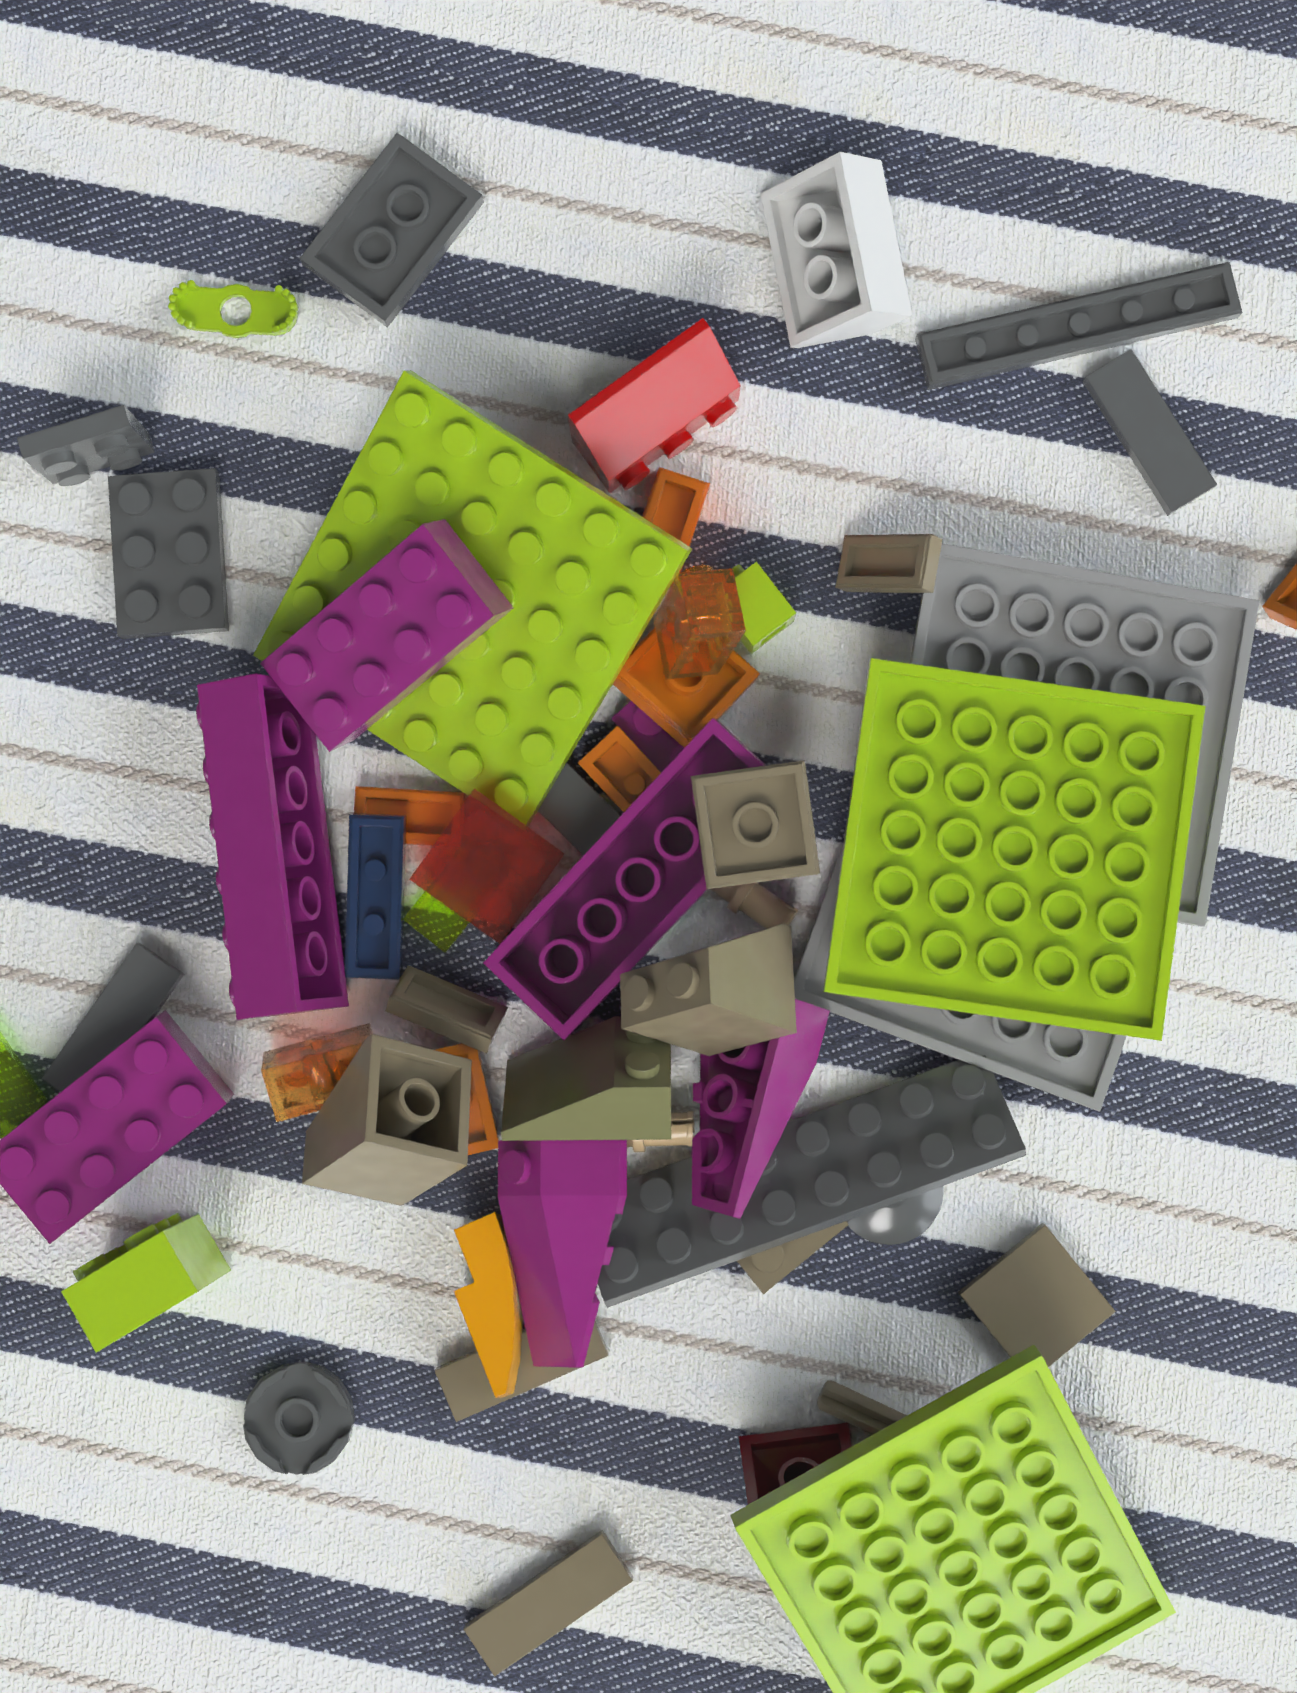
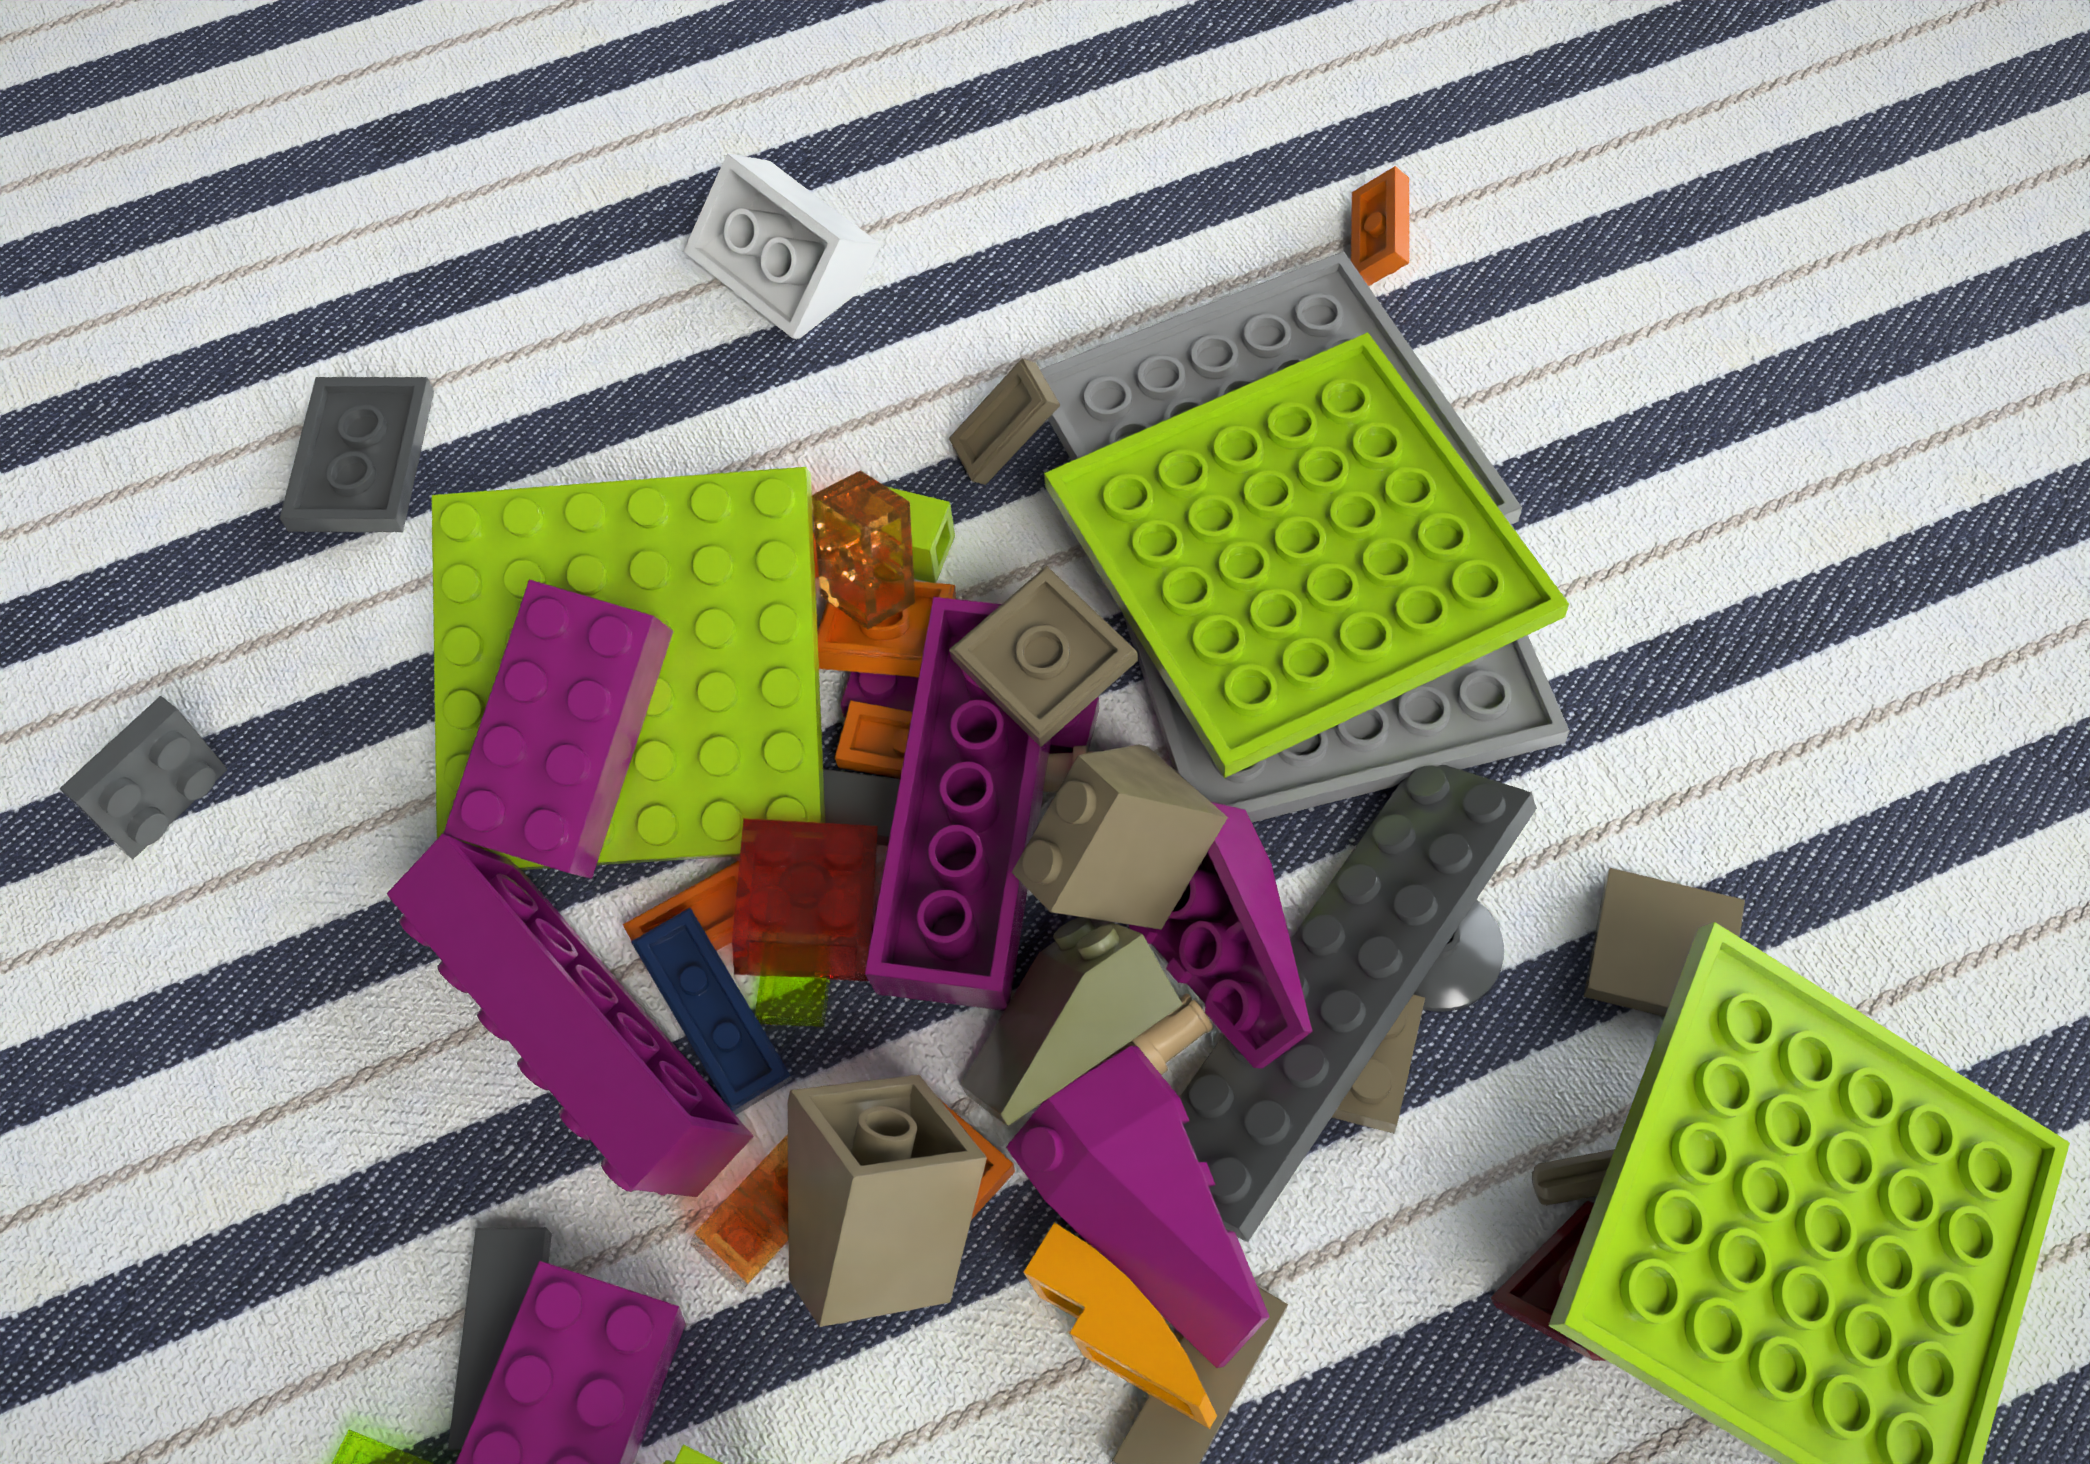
camera: 35 degrees left, 25 degrees down
(168, 553) = (292, 844): dark grey plate -> none
(201, 308) = (209, 622): lime piece -> none
(446, 1009) = (863, 1061): dark tan tile -> none
(655, 408) = (700, 410): slope -> none
(1078, 326) = (1025, 189): dark grey tile -> none
(1149, 432) = (1150, 219): dark grey tile -> none

